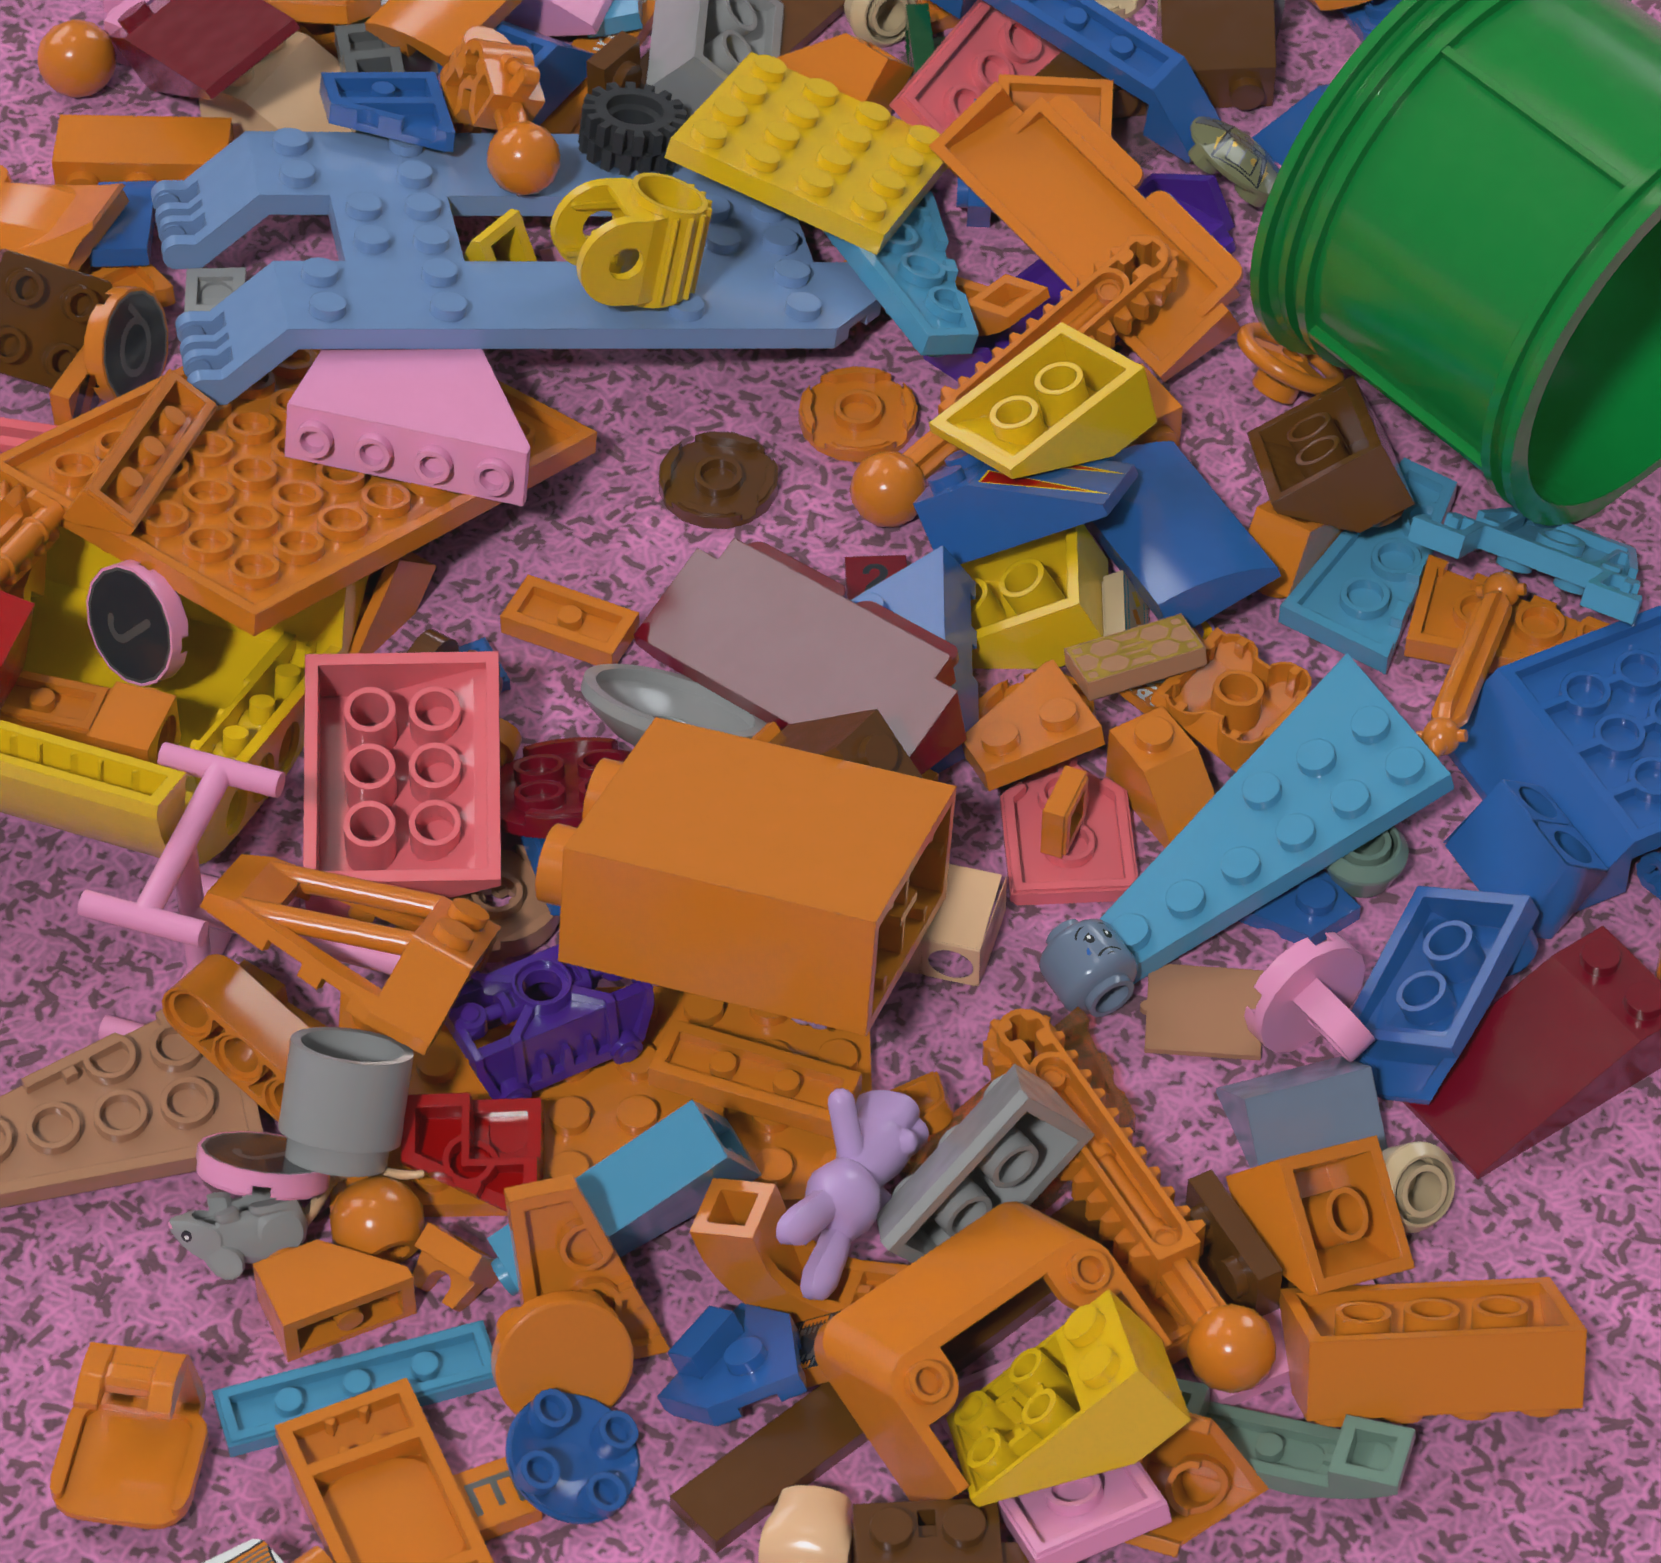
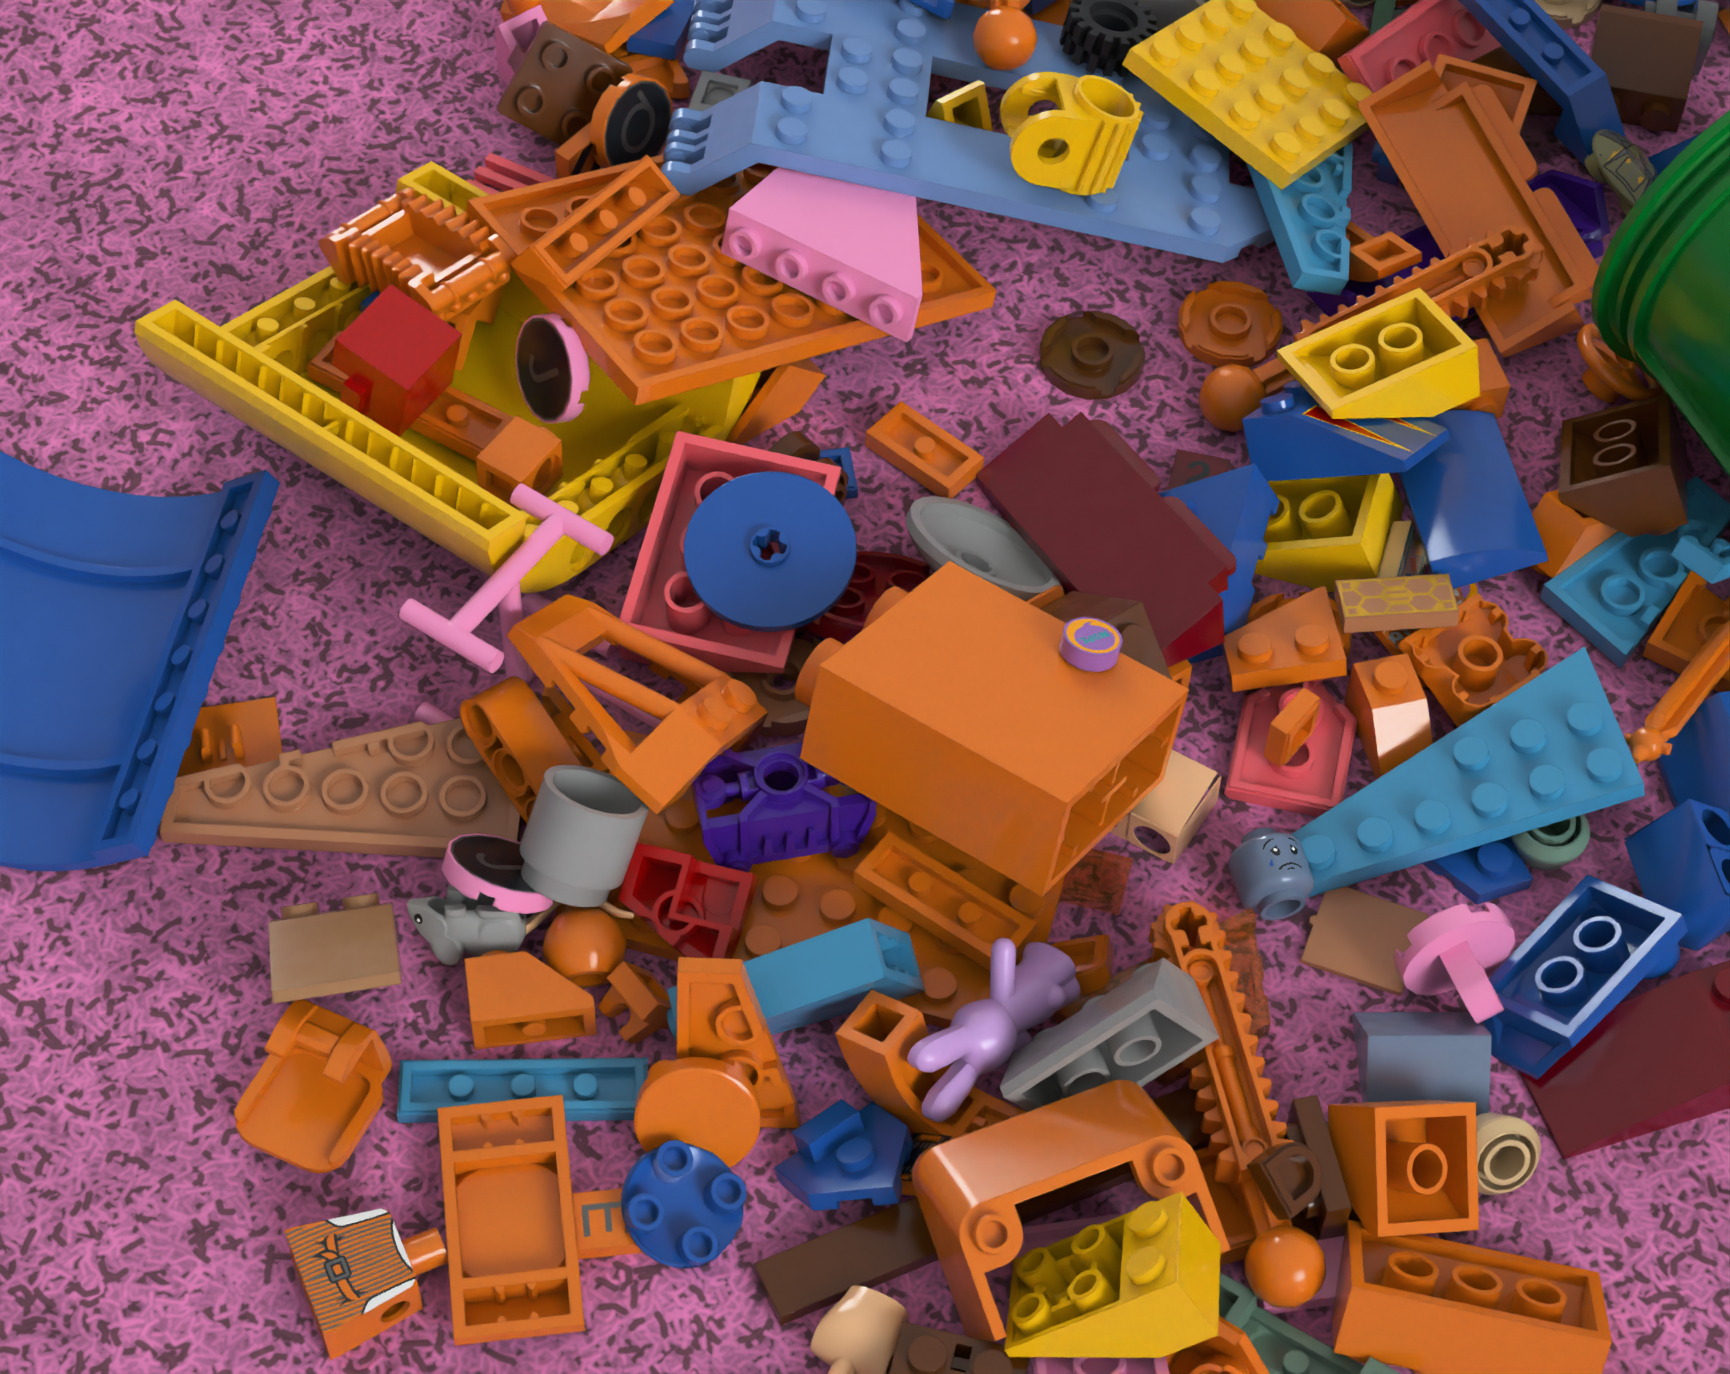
camera: 15 degrees right, 5 degrees up
(109, 1286) = (333, 949): none -> medium nougat slope
(402, 750) = (798, 582): none -> blue piece
(839, 763) = (1090, 644): none -> medium lavender tile
(907, 1023) = (1098, 881): none -> clear orange tile
(1209, 1255) = (1287, 1177): none -> reddish brown tile

